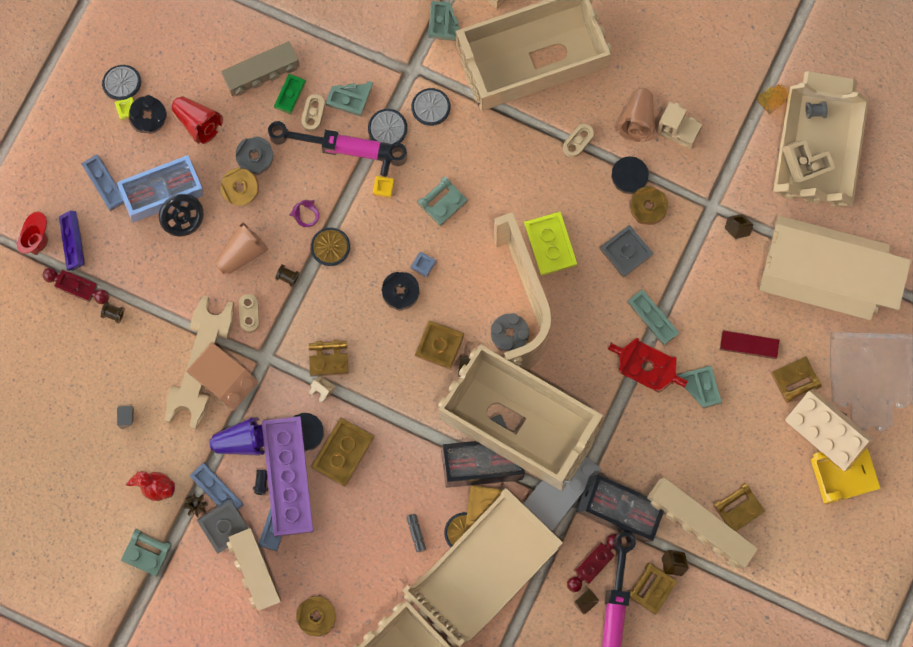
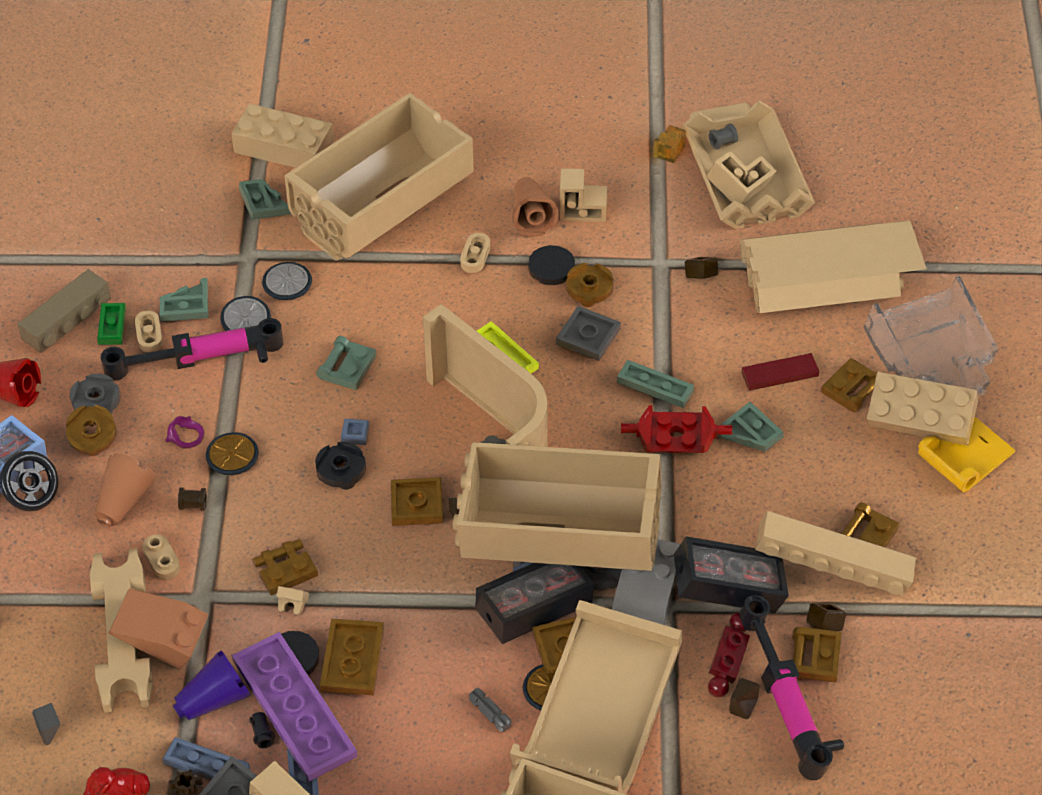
camera: 25 degrees left, 25 degrees down
(383, 186) = (268, 374): yellow tile -> none

